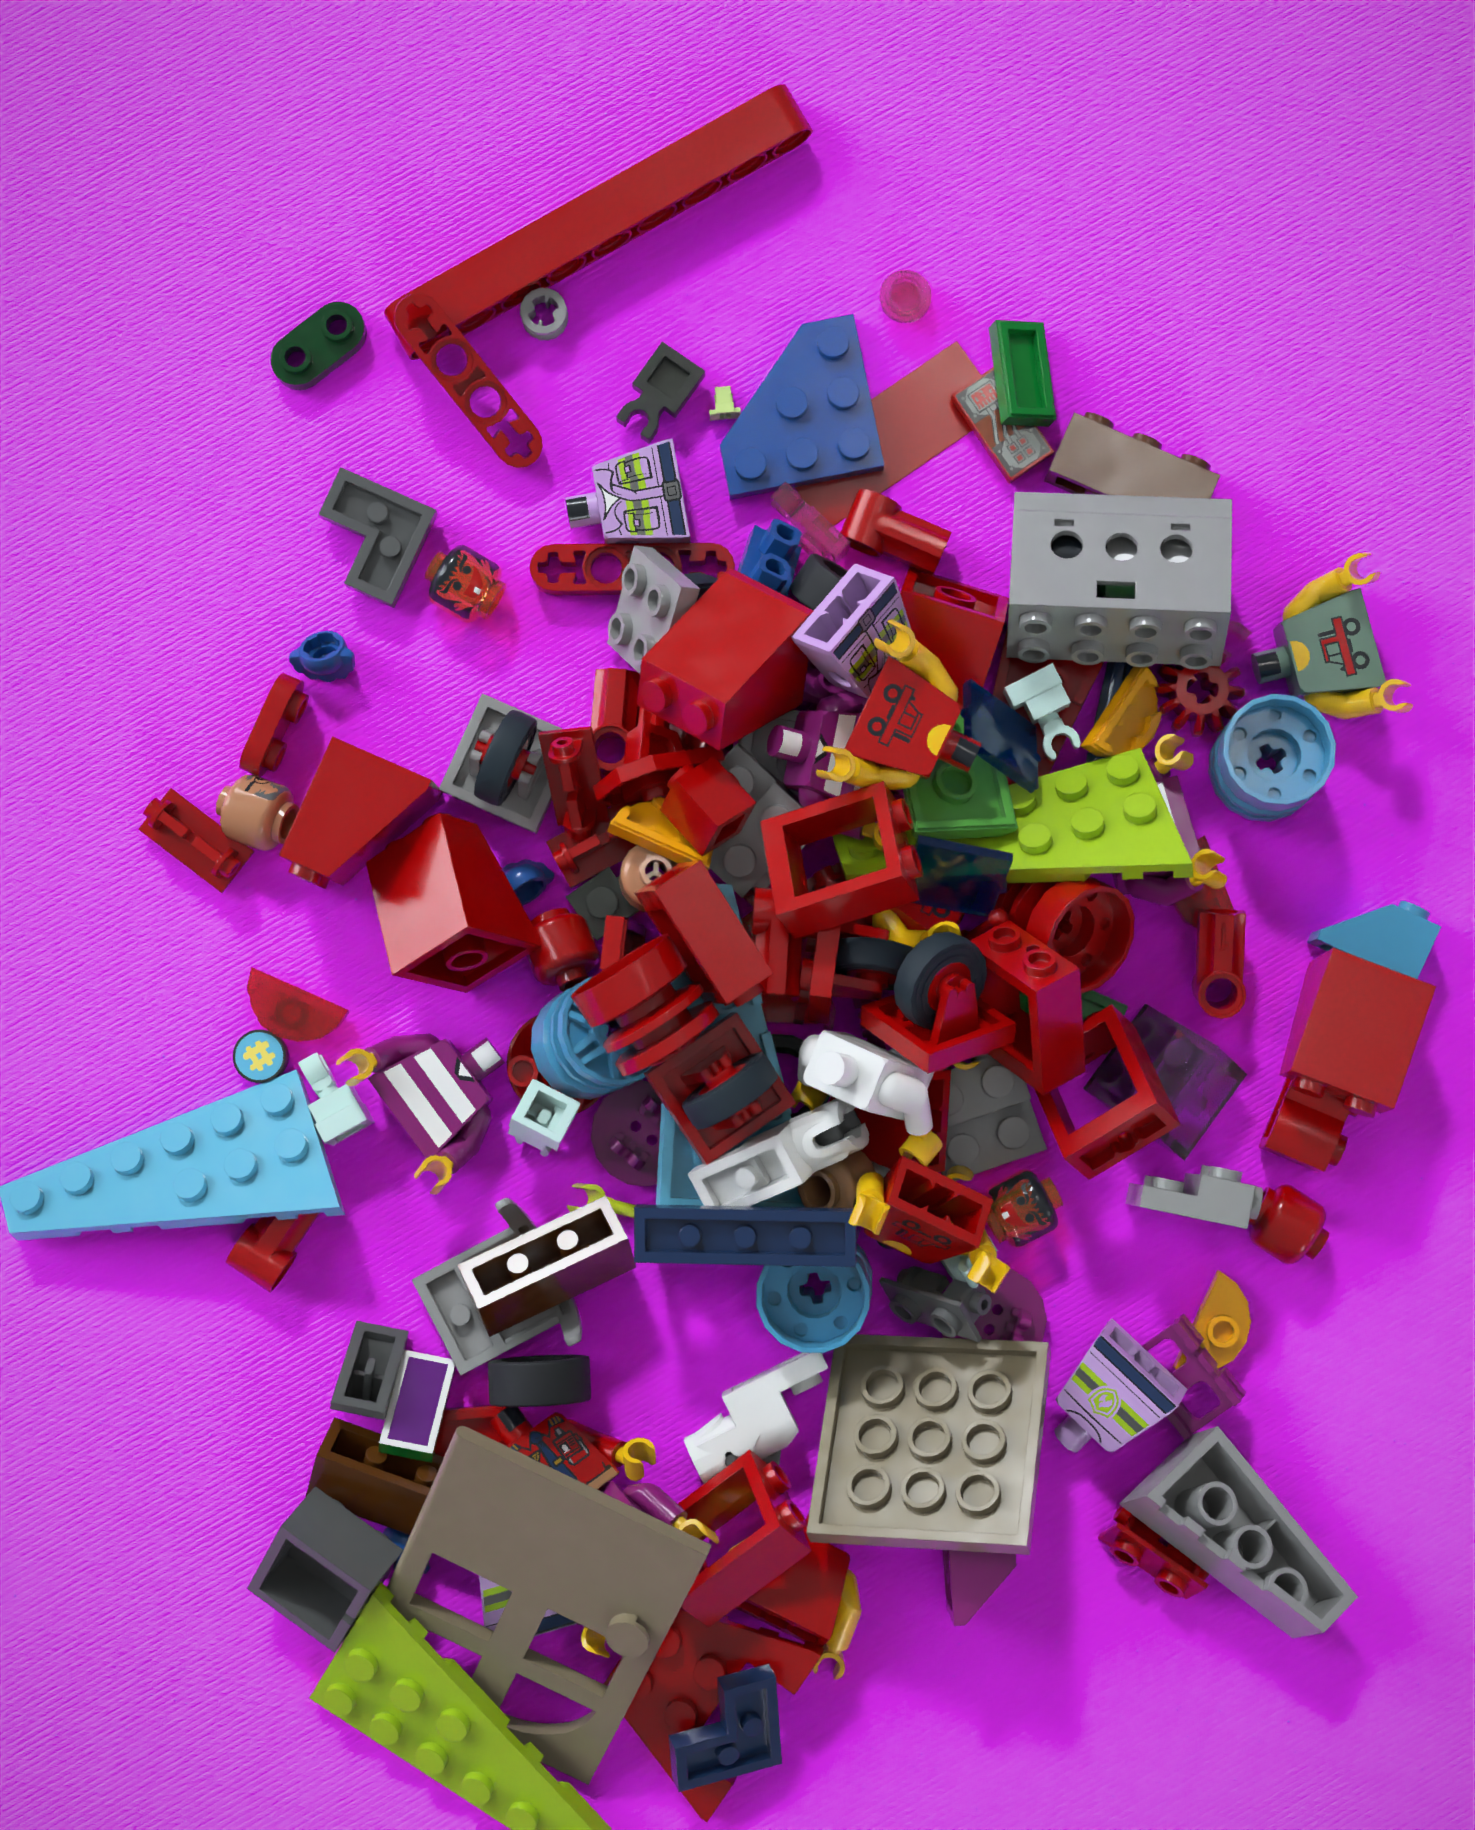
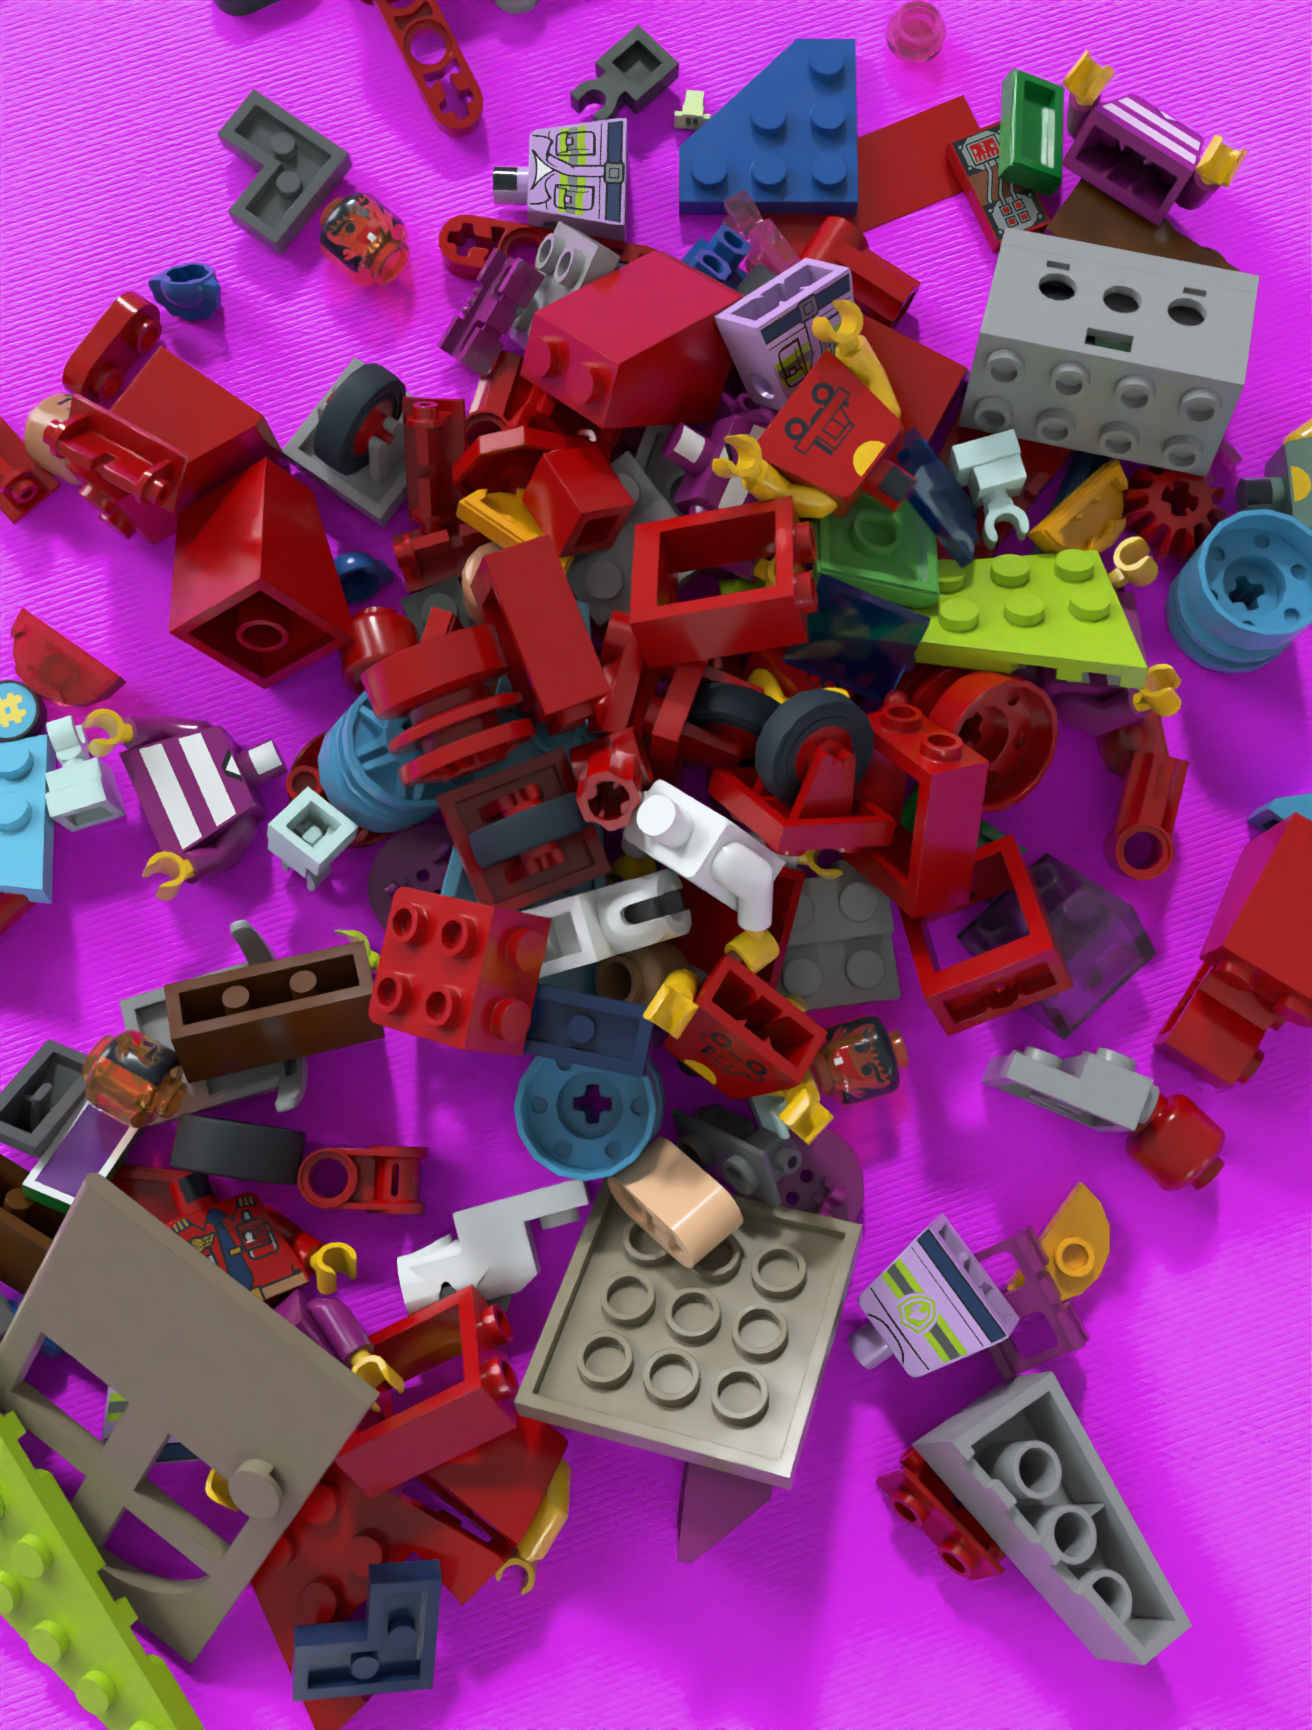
camera: 10 degrees right, 5 degrees down
(342, 846) = (119, 452): none -> red hinge
(445, 1341) = (134, 1079): none -> clear orange head
(585, 631) = (500, 277): none -> magenta piece
(648, 1382) = (370, 1179): none -> red piece
(696, 1214) = (459, 972): none -> red bracket
(783, 1034) = (611, 777): none -> red piece
(898, 1354) = (675, 1202): none -> light nougat beam
(1118, 387) = (1139, 150): none -> magenta torso

